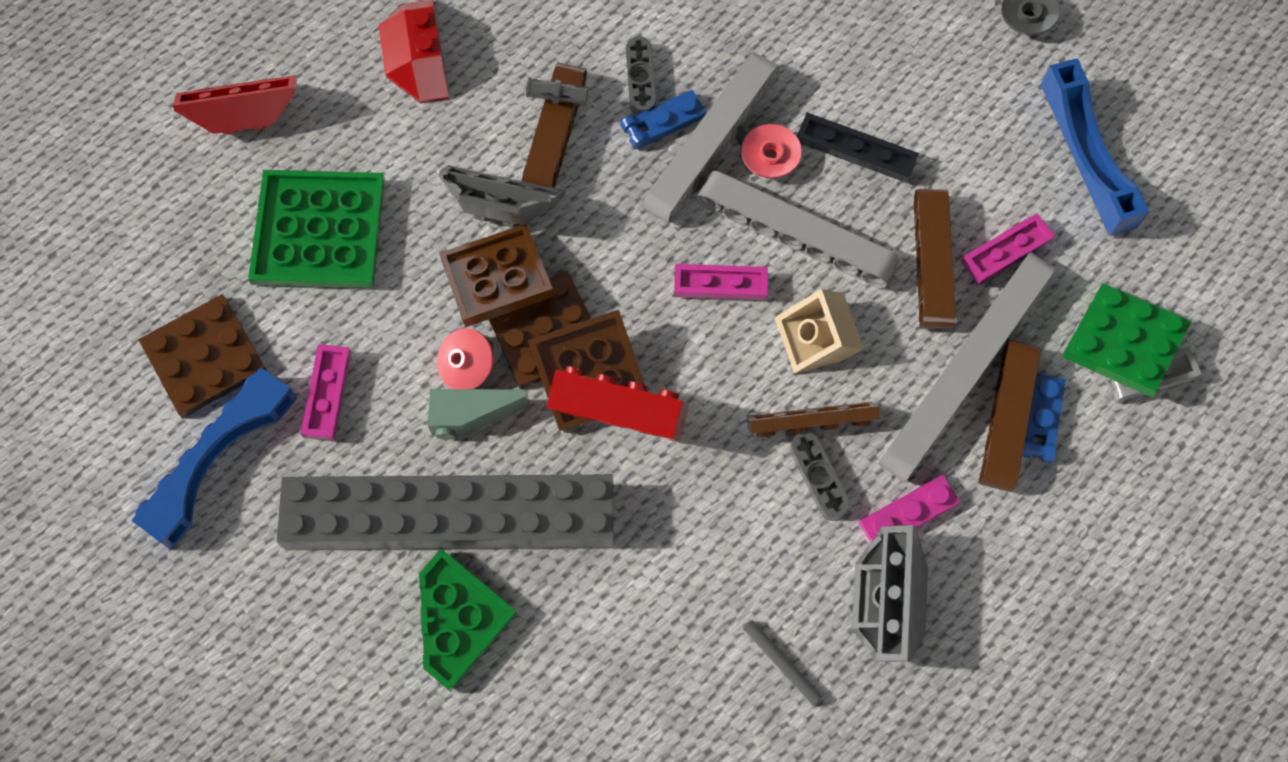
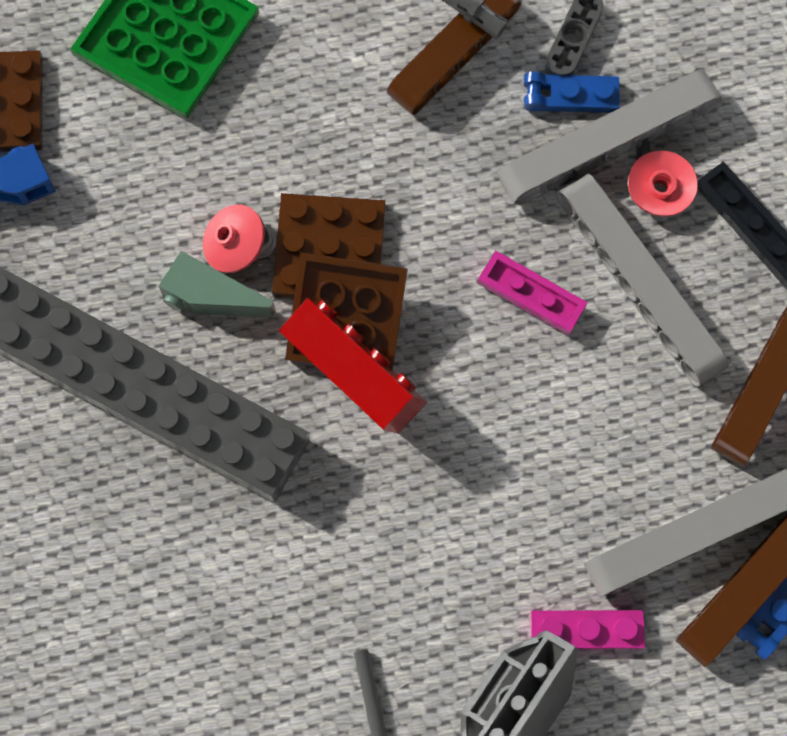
camera: 25 degrees right, 5 degrees up
(326, 392) = (83, 200): dark pink plate -> none
(457, 619) = (85, 490): green plate -> none
(496, 275) = (310, 169): reddish brown plate -> none
(497, 196) = (356, 88): dark grey wedge -> none
(819, 331) = (602, 396): tan slope -> none
(820, 500) = (530, 517): dark grey beam -> none
(826, 417) = (557, 487): reddish brown plate -> none

